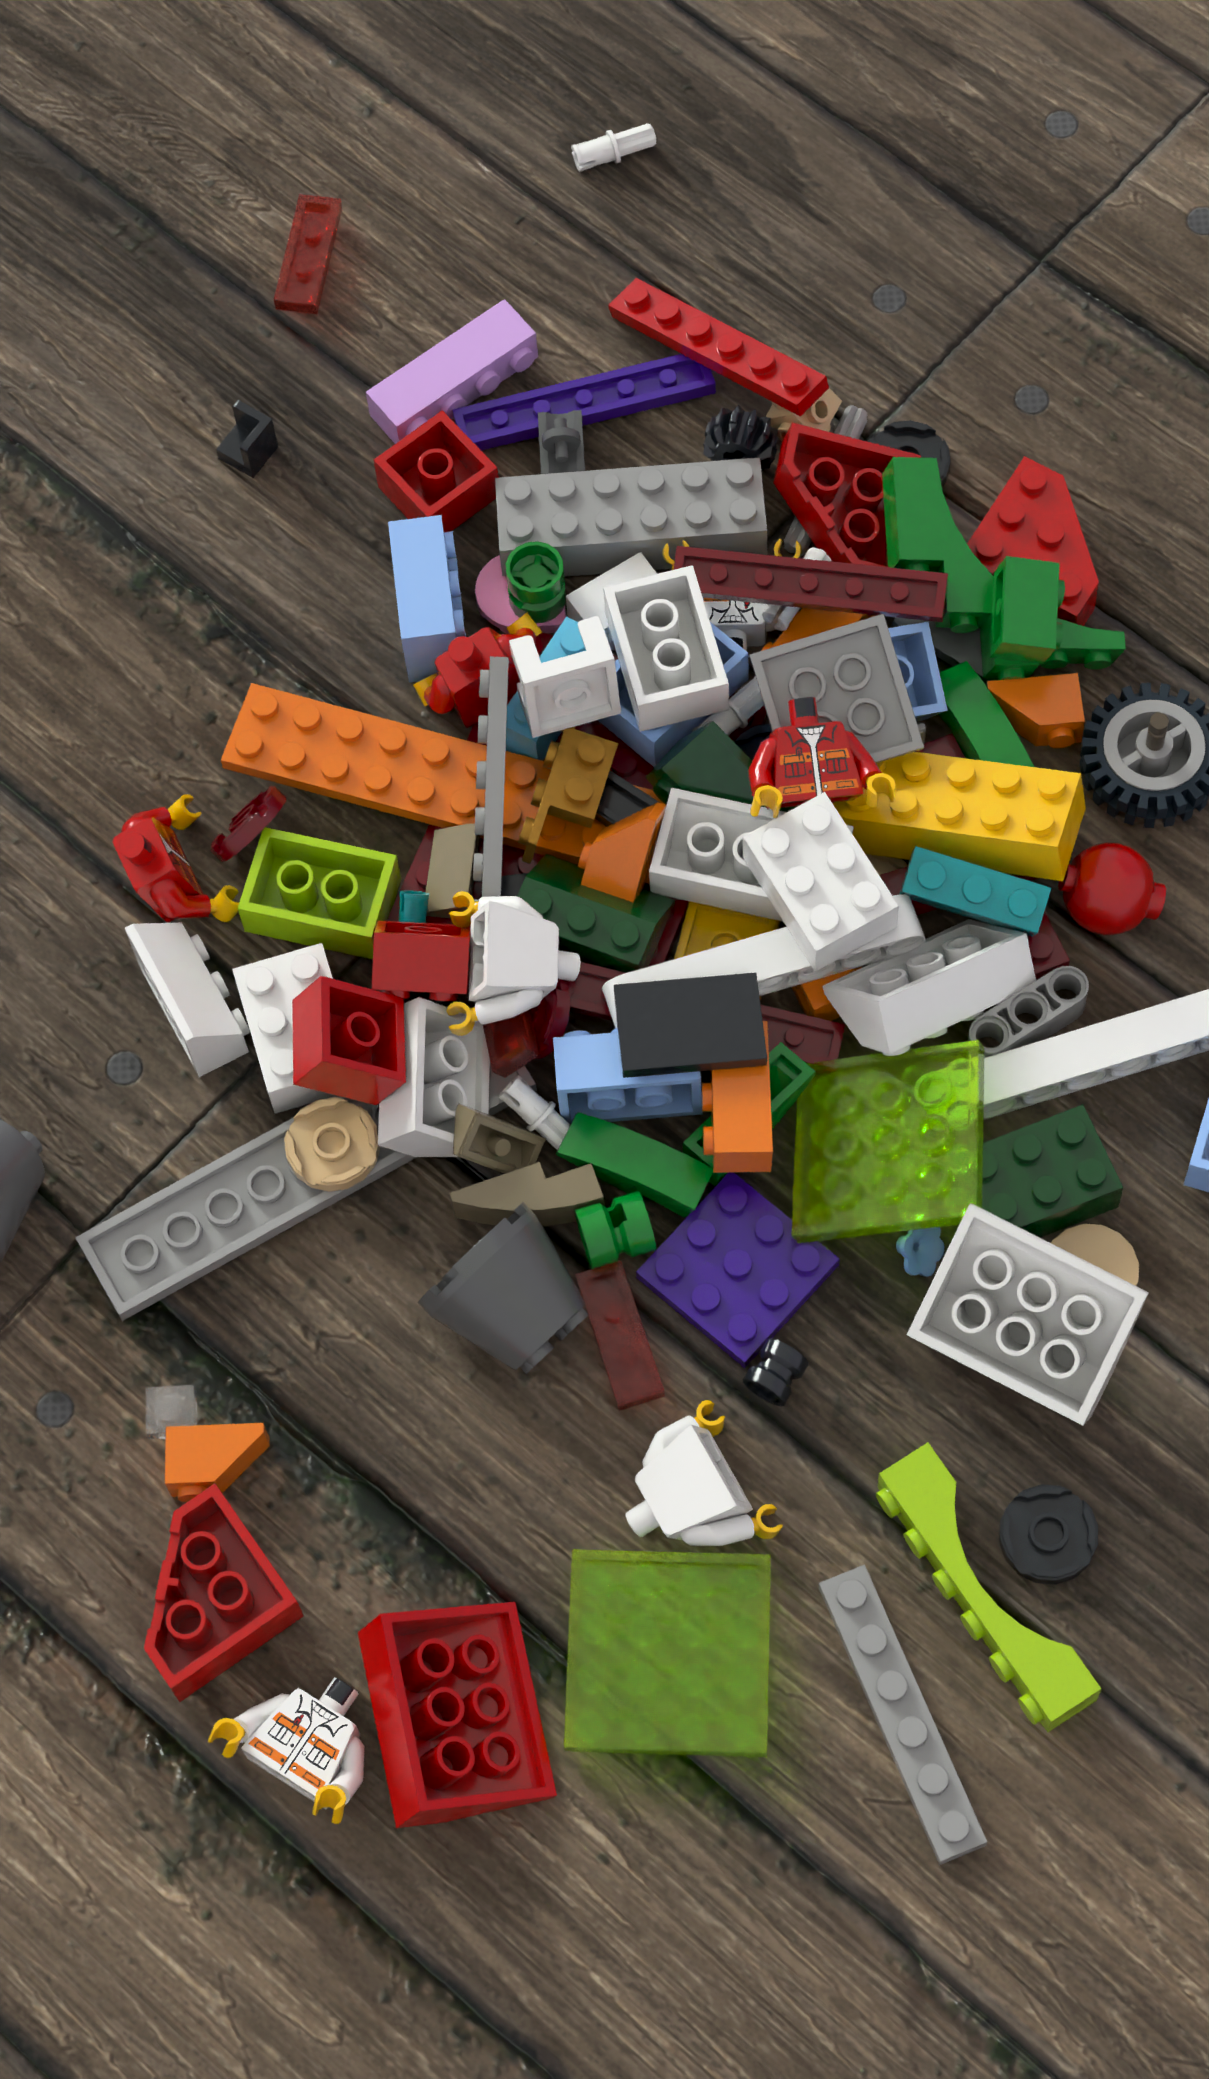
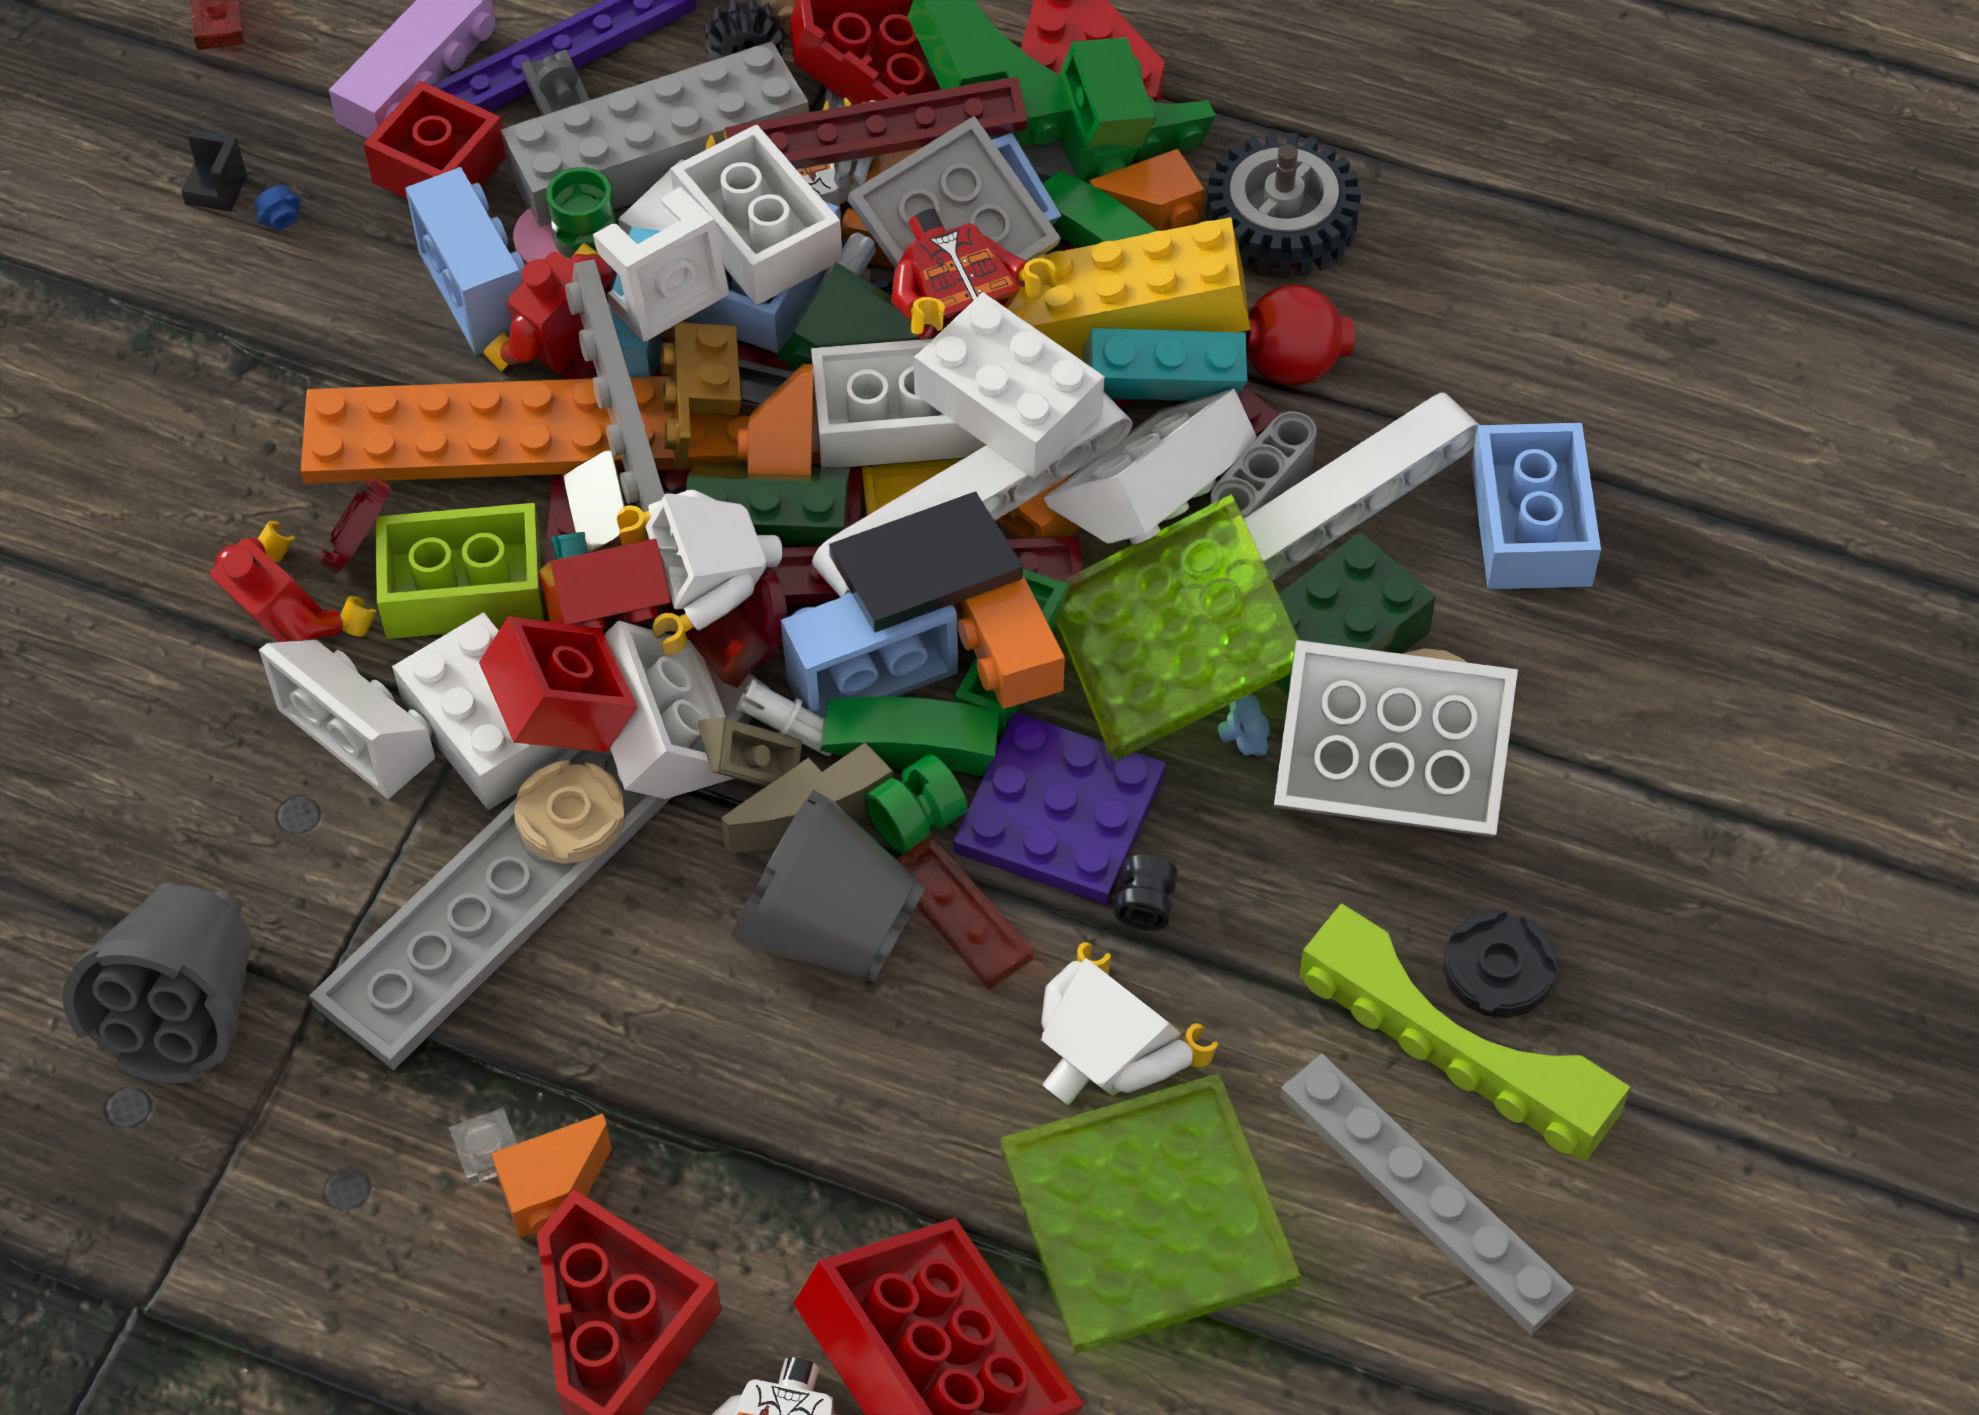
camera: 25 degrees left, 10 degrees down
(290, 490) = (277, 207): none -> blue plate

